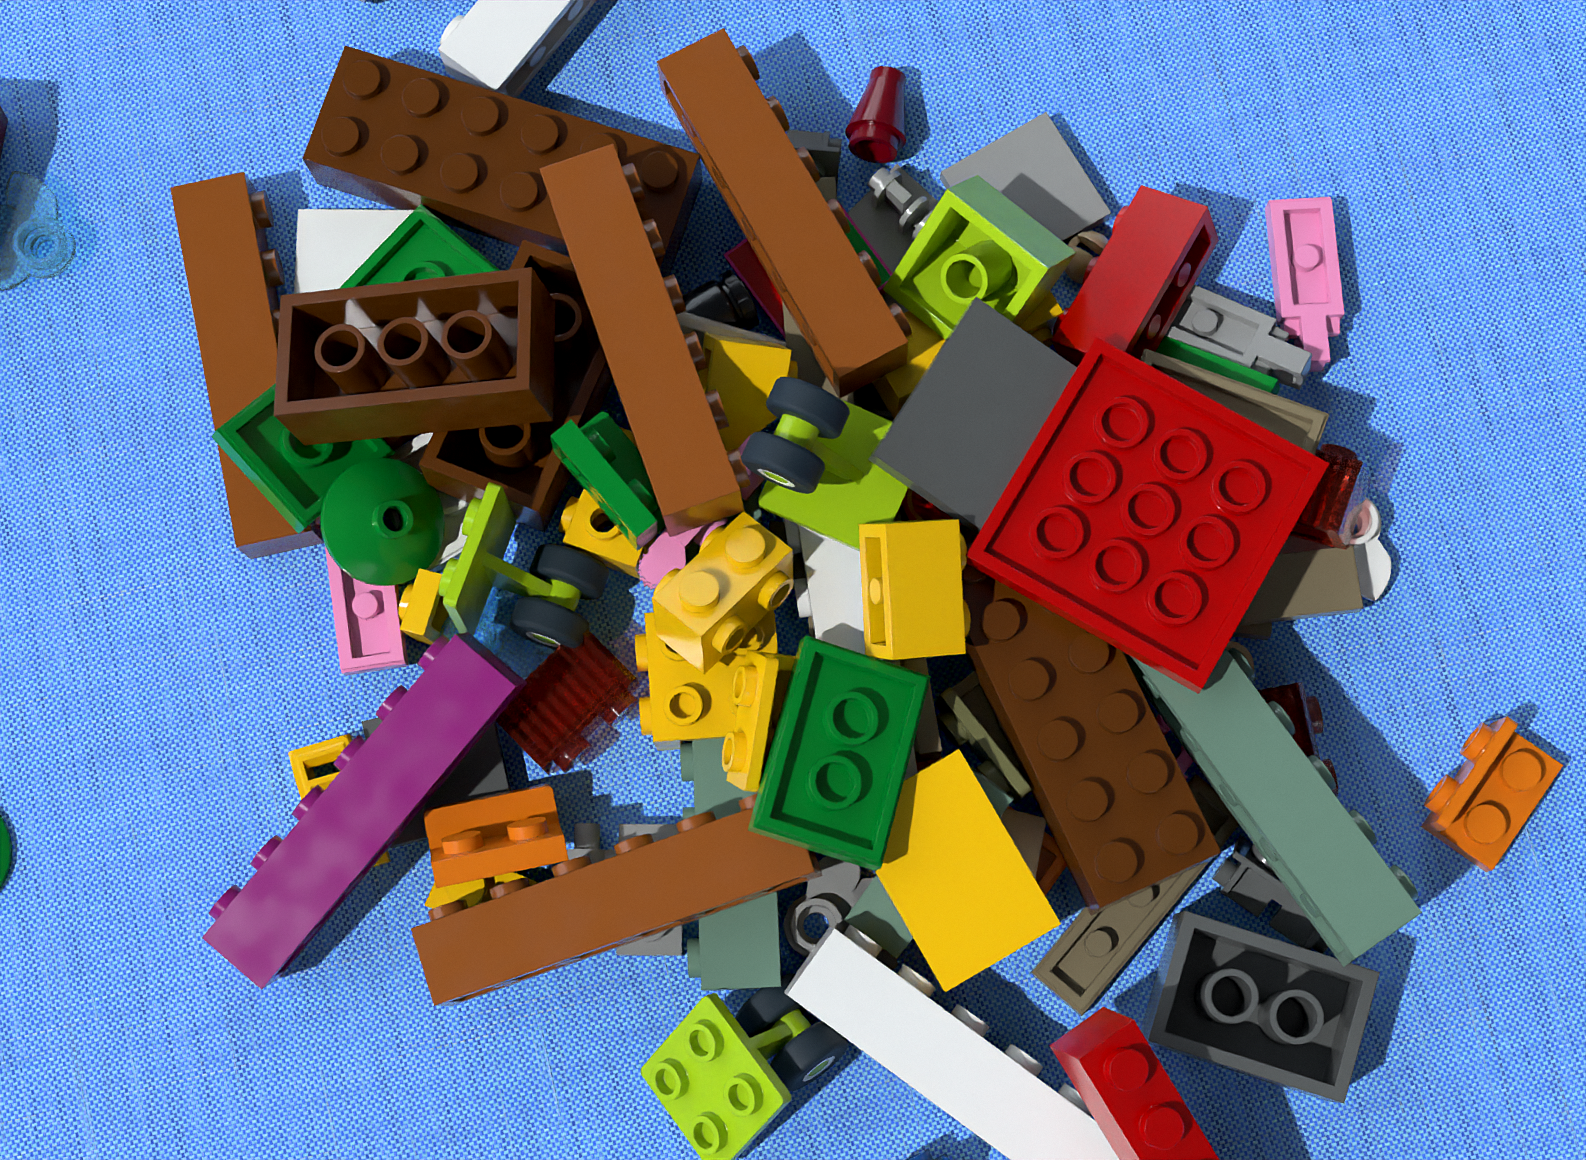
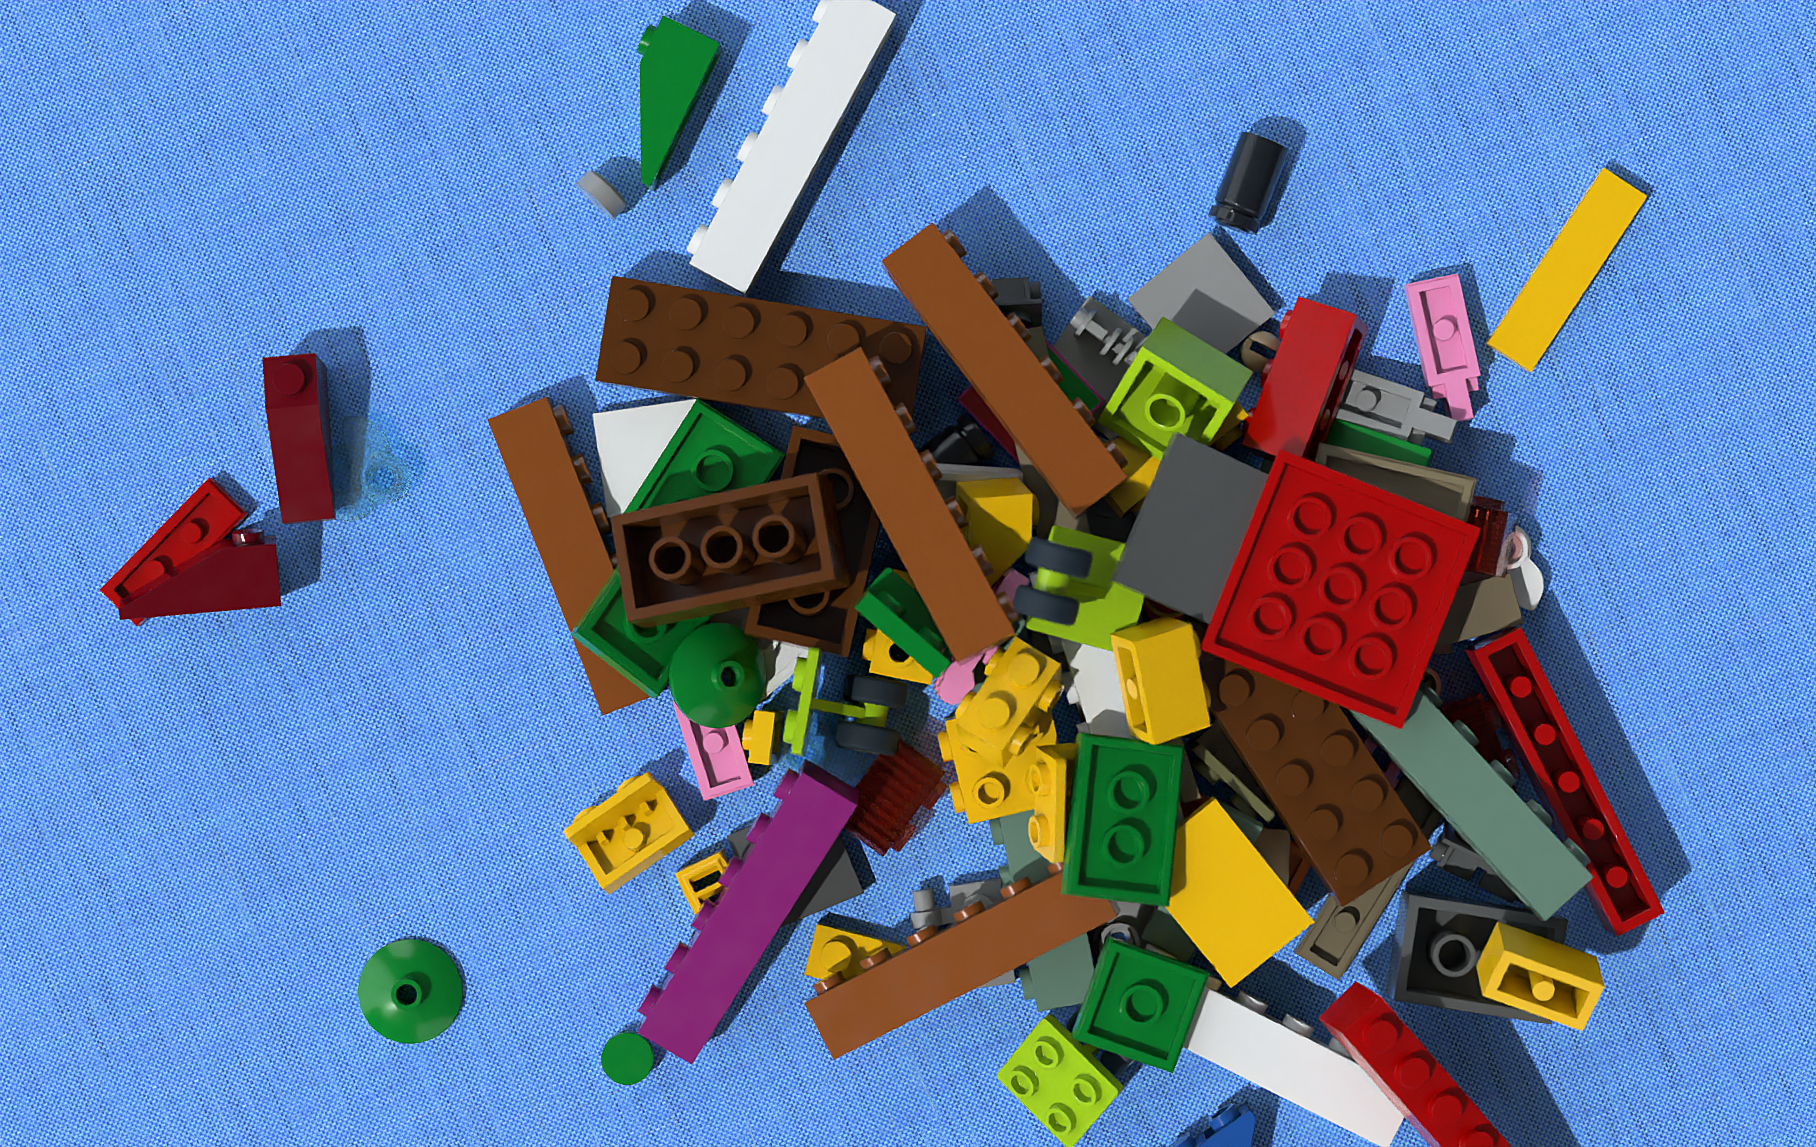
camera: 10 degrees left, 10 degrees up
(191, 975) = (627, 1057): none -> green tile
(243, 694) = (628, 831): none -> yellow bracket
(494, 835) = (854, 917): orange bracket -> none
(828, 993) = (1140, 1004): none -> green tile
(879, 119) = (1069, 257): dark red cone -> none
(1099, 63) = (1248, 183): none -> black piece
(1340, 1031) = (1540, 976): none -> yellow brick
(1389, 788) = (1564, 778): none -> red brick
(1456, 217) = (1566, 270): none -> yellow tile
(1490, 793) = (1643, 753): orange bracket -> none

